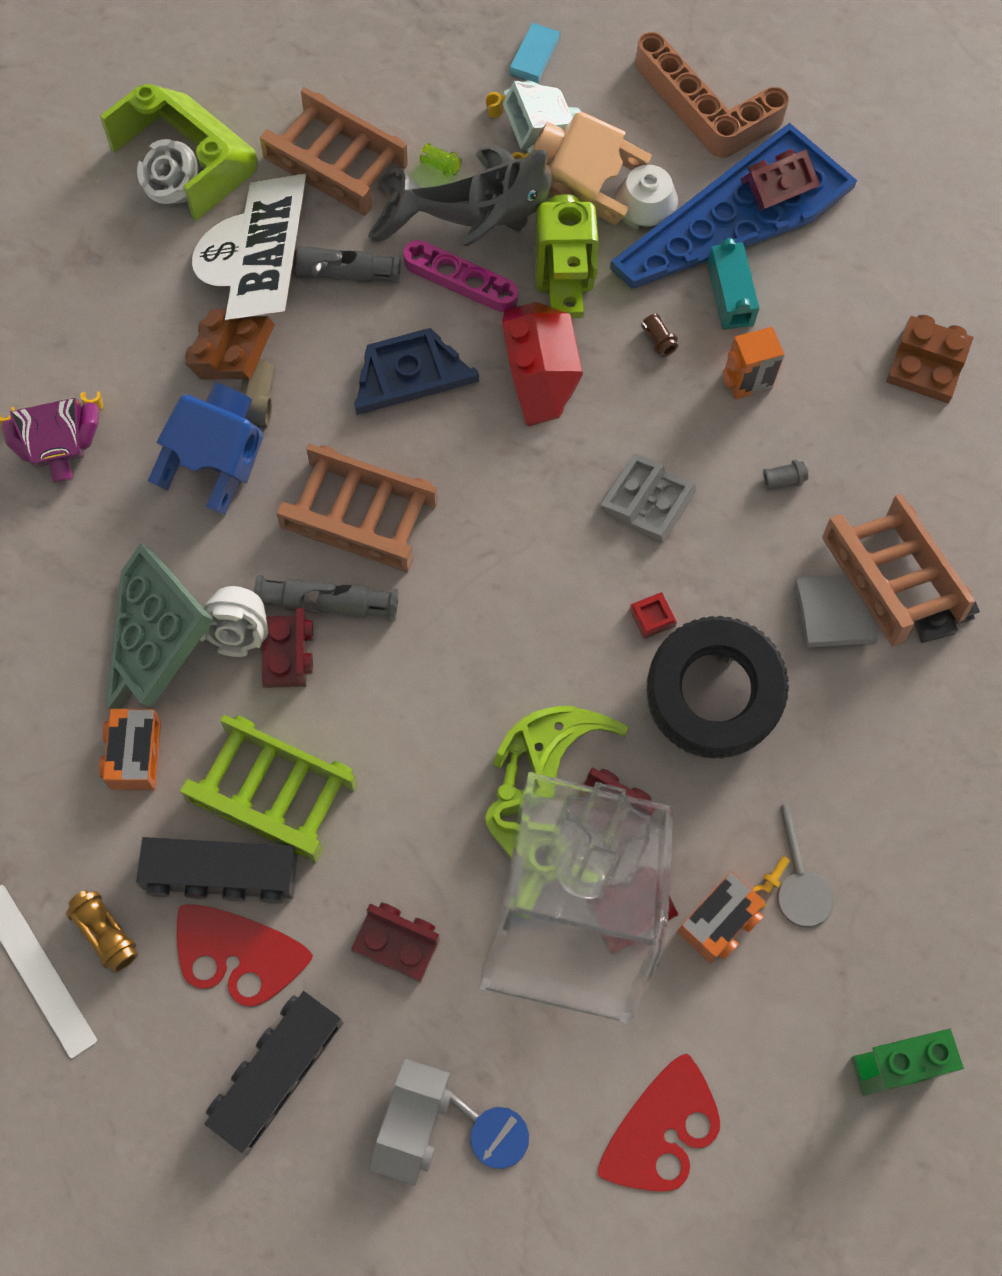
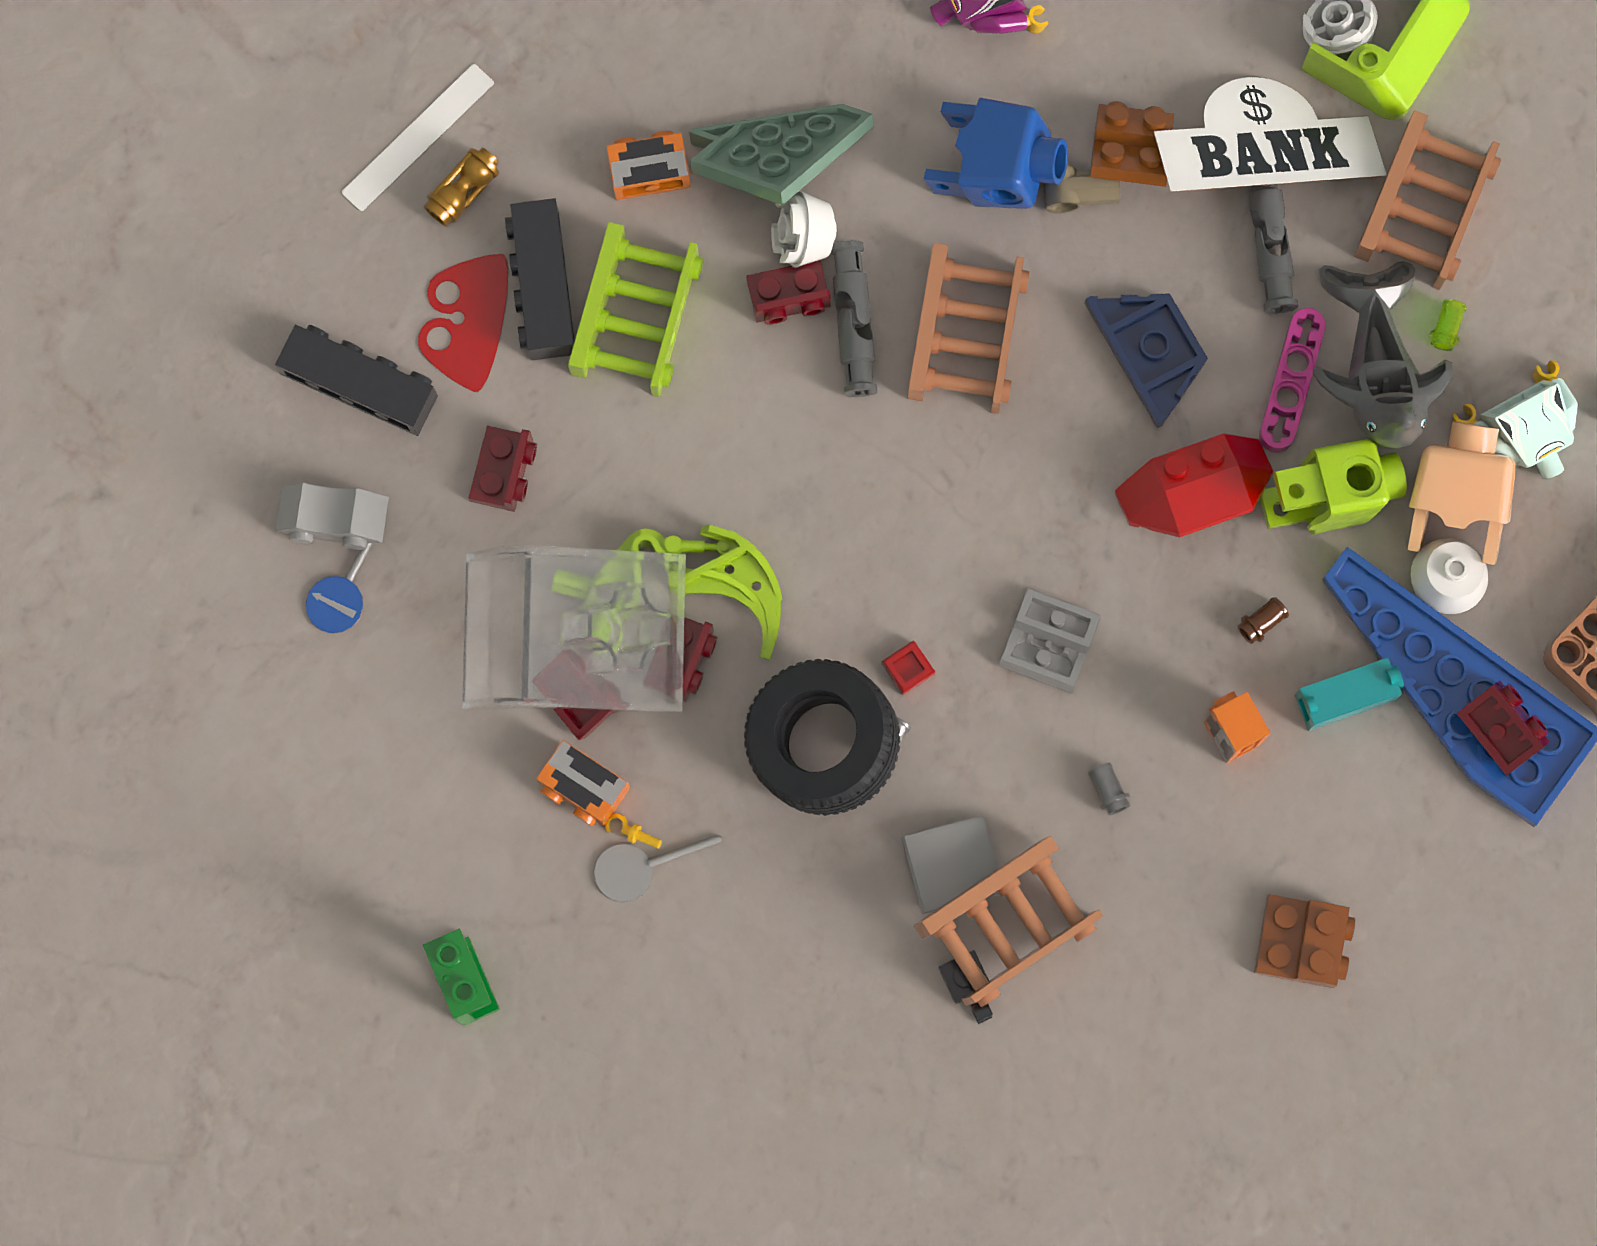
camera: 85 degrees right, 10 degrees up
(640, 1137) = (391, 757): red piece -> none

